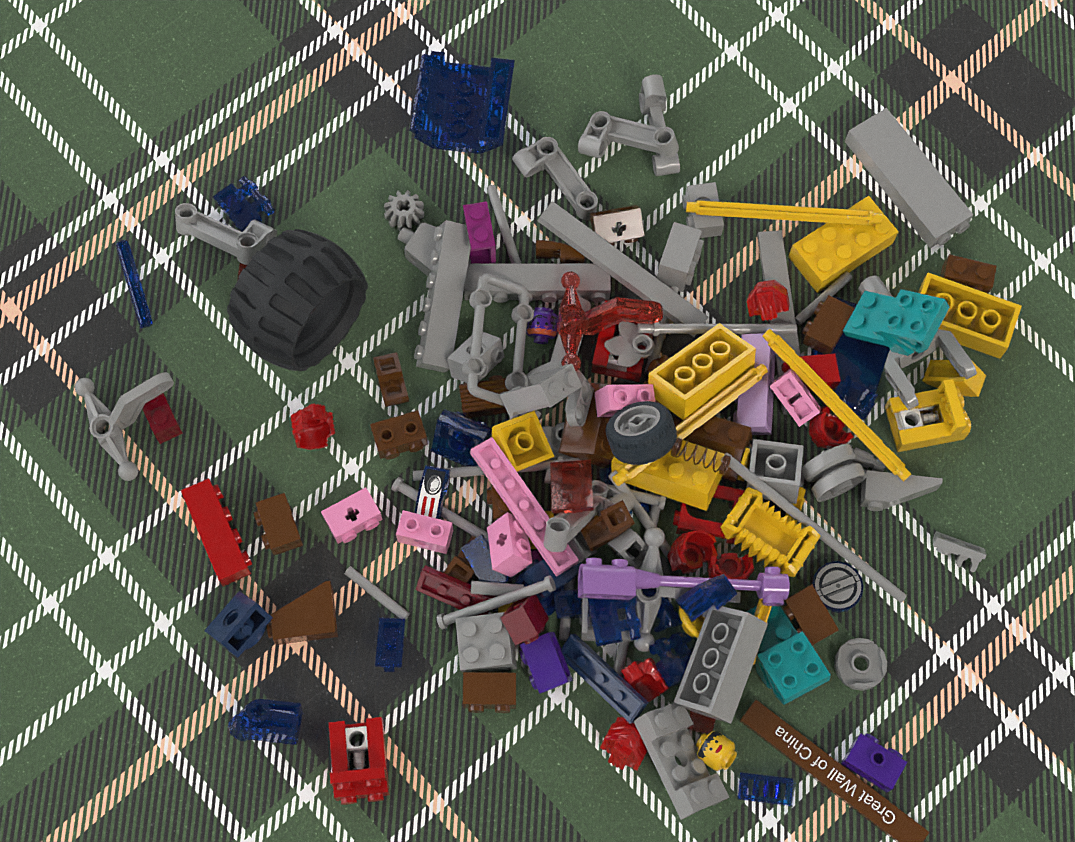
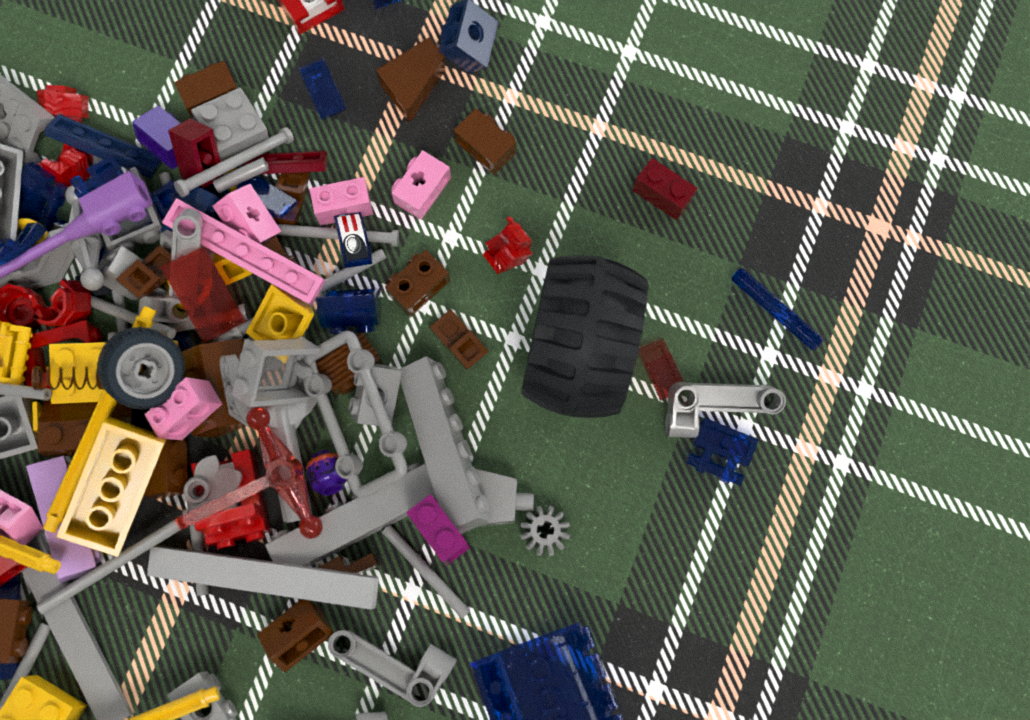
camera: 155 degrees right, 5 degrees up
(122, 416) = (702, 153): light grey piece -> none
(216, 532) = (541, 110): red brick -> none
(375, 592) = (361, 132): light grey bar -> none
(680, 256) = (202, 625): light grey brick -> none
(768, 300) = (82, 627): red hair -> none

